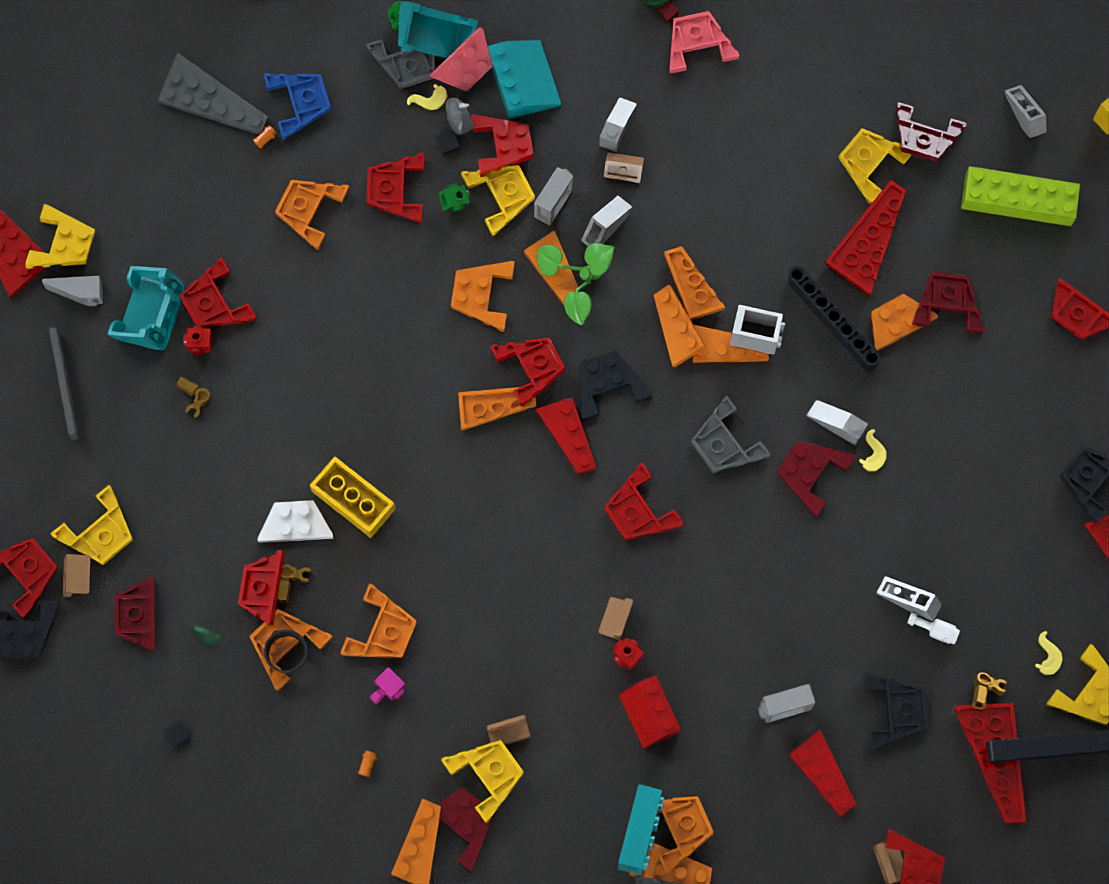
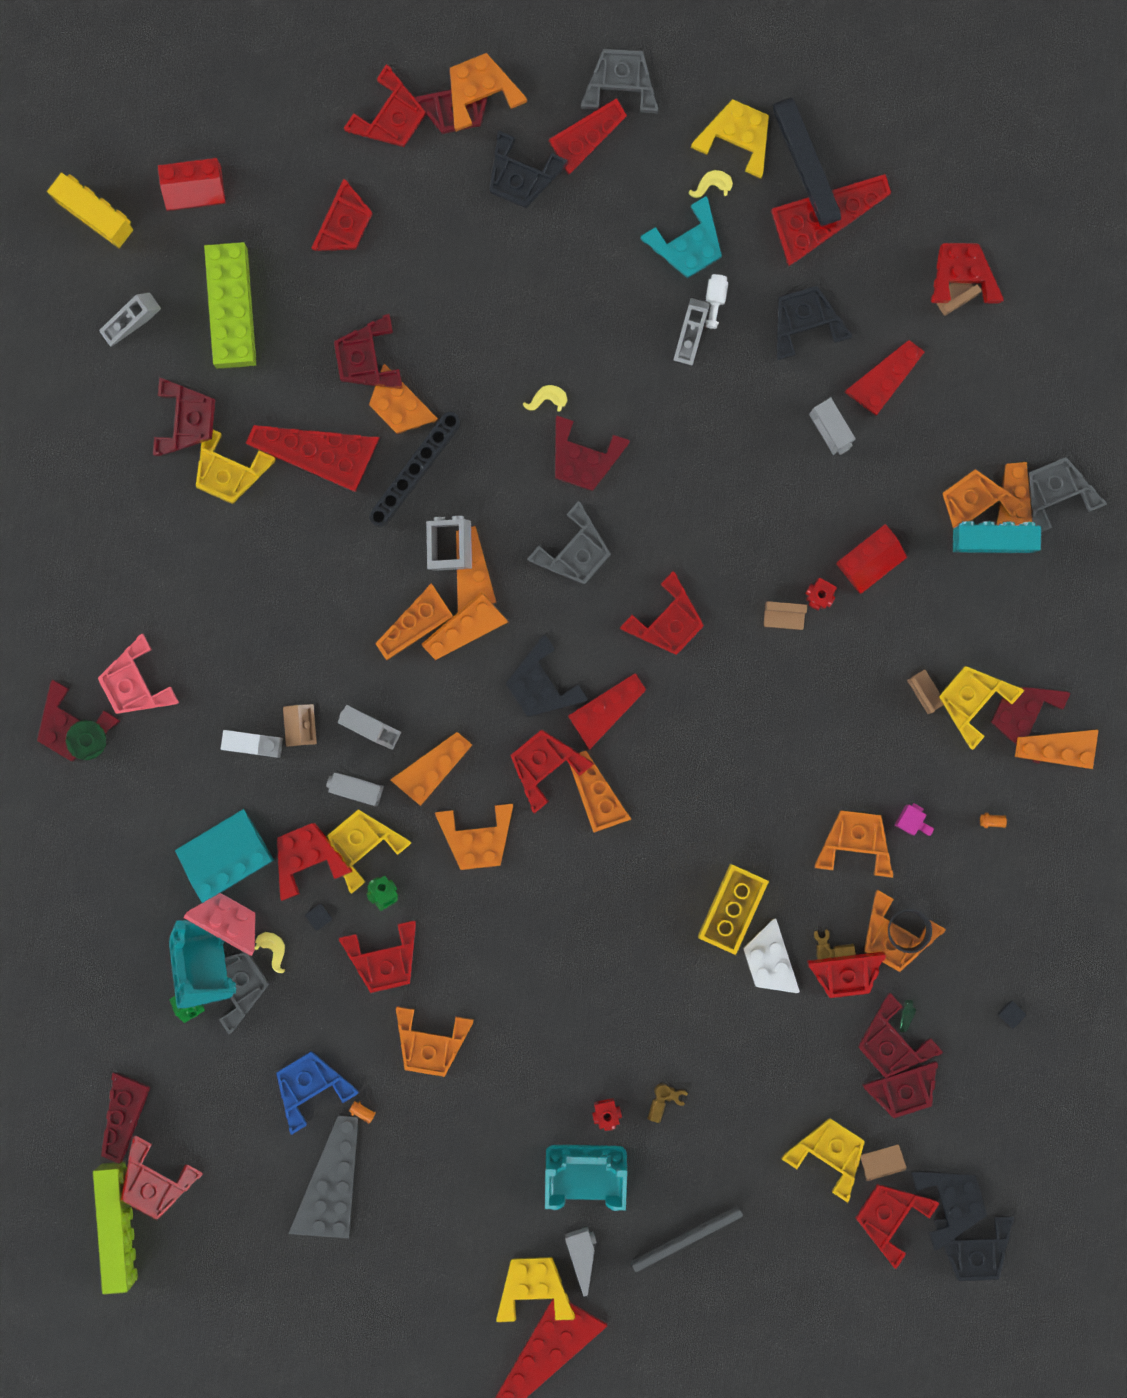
camera: 105 degrees left, 15 degrees up
(181, 607) = (887, 1048): none -> dark red wing
(206, 303) = (563, 1118): red wing -> none
(458, 116) = (289, 913): dark grey hair -> none
(596, 255) = (424, 724): bright green plant -> none
(838, 421) = (524, 441): light grey slope -> none
(983, 684) = (759, 242): pearl gold bar -> none
(989, 623) = (694, 248): none -> teal wing

